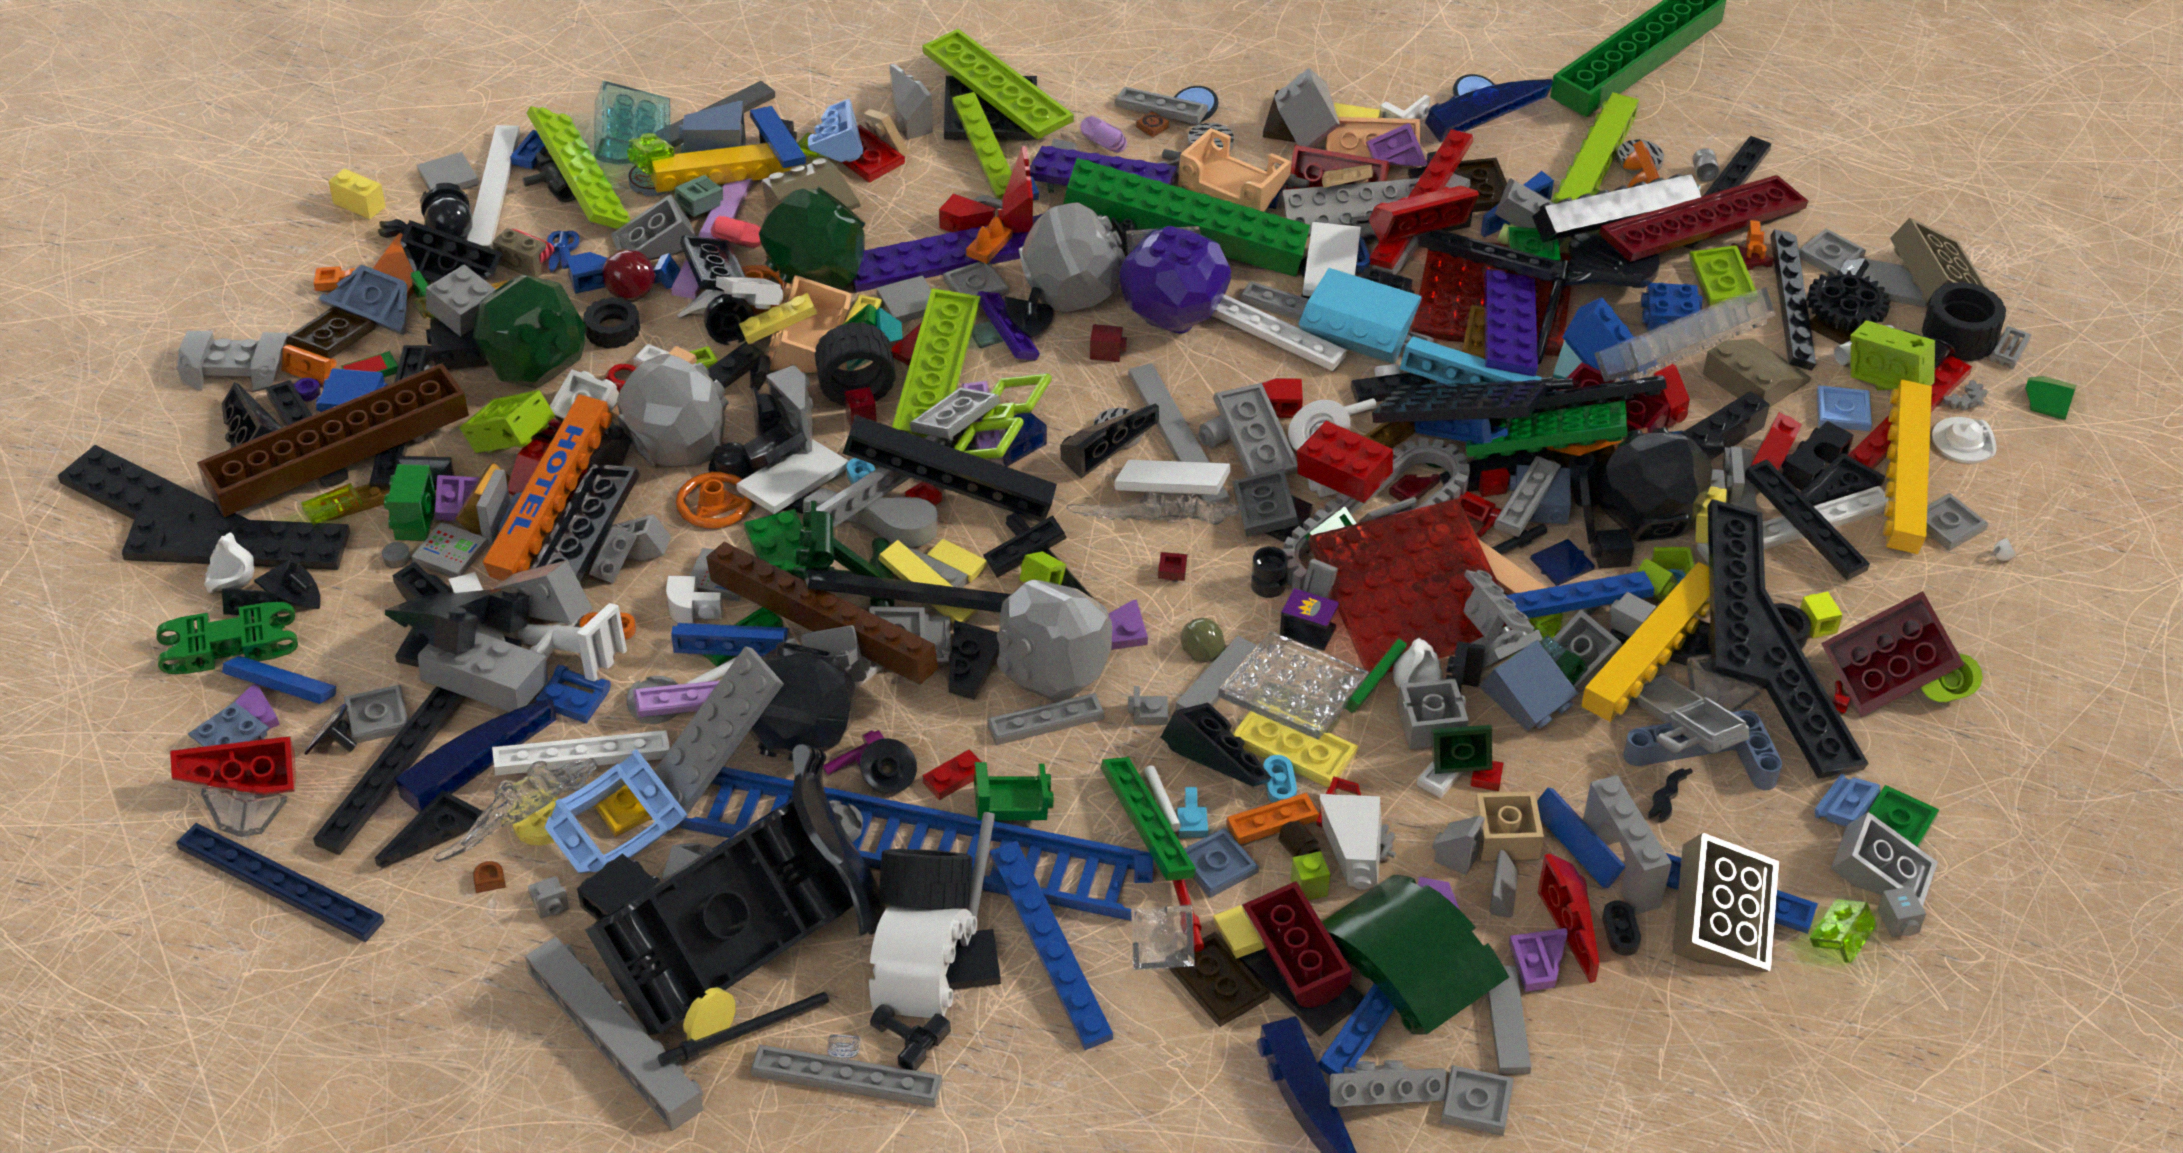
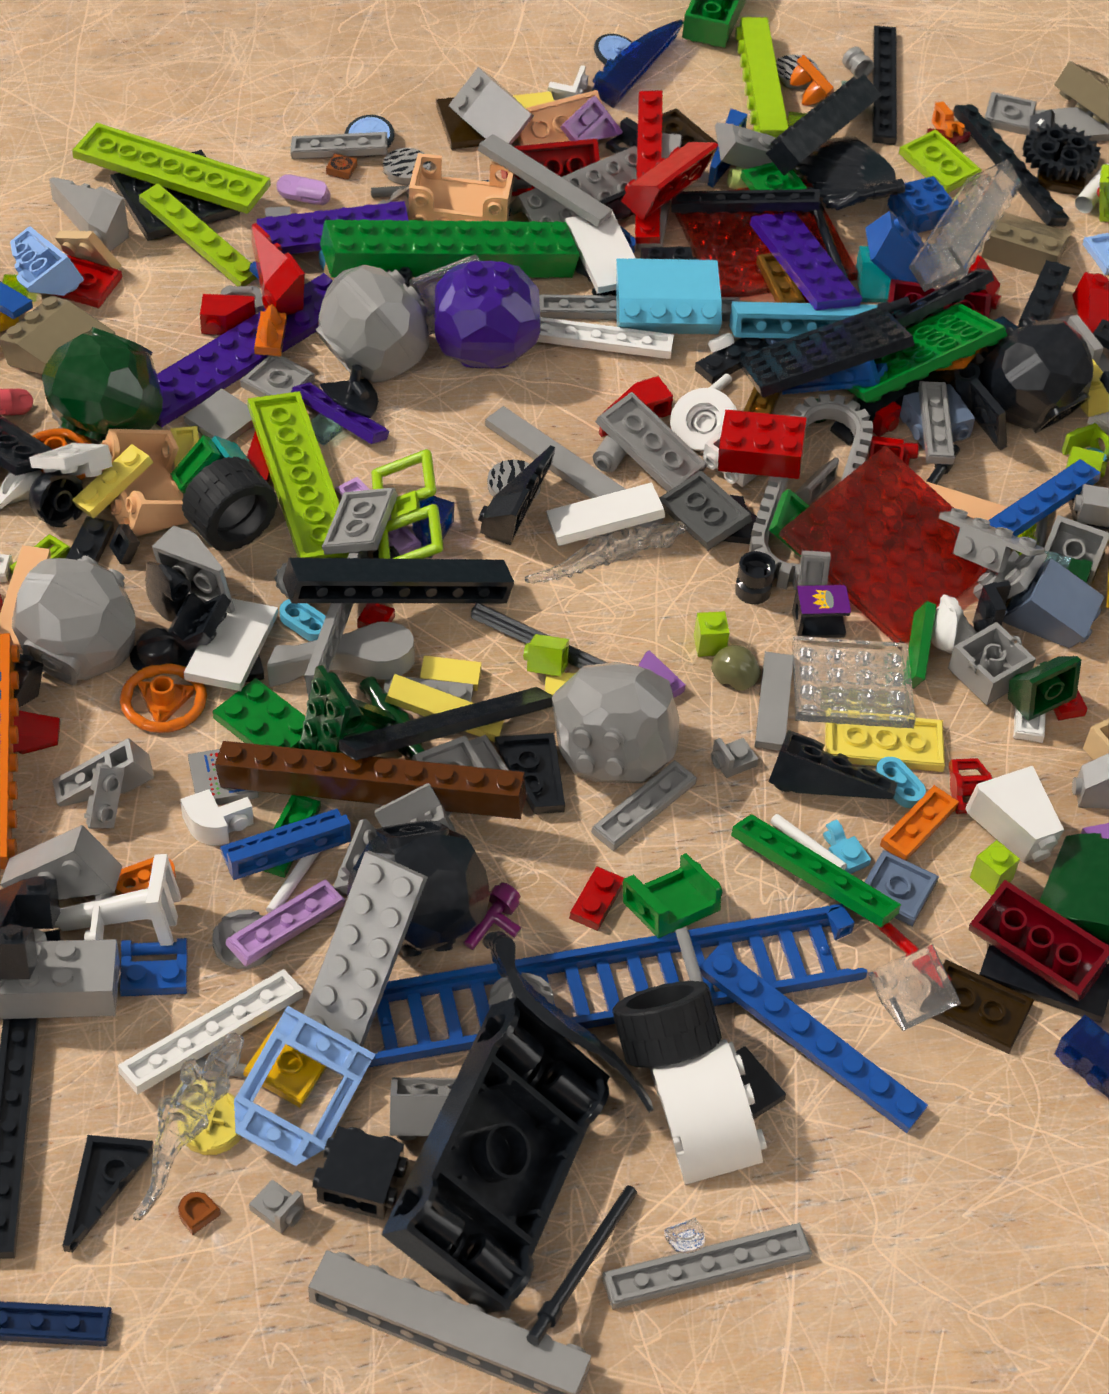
camera: 30 degrees left, 5 degrees up
(470, 753) = (88, 1086): clear blue slope -> none
(588, 517) = (50, 769): black plate -> none
(709, 1014) = (544, 1268): light yellow tile -> none
(860, 403) = (254, 548): dark red brick -> none
(895, 756) = (543, 911): black dish -> none
(916, 1038) = (754, 1194): black bar -> none
(1034, 540) = (511, 634): black tile -> none
(1107, 343) = (449, 399): dark red brick -> none
(1172, 566) = (660, 604): dark red plate -> none
(1197, 601) = (711, 633): none -> lime brick
(1238, 932) = (968, 950): light yellow tile -> none
(1298, 839) = (959, 837): dark brown brick -> none
(1309, 183) = (545, 180): none -> light grey tile
(1341, 176) = (571, 162): tan wing -> none
(1413, 486) = (817, 448): dark red tile -> none
(1562, 562) = (989, 475): clear blue piece -> none
(1612, 548) = (1027, 446): black brick -> none
(1702, 217) = (895, 113): dark red plate -> none

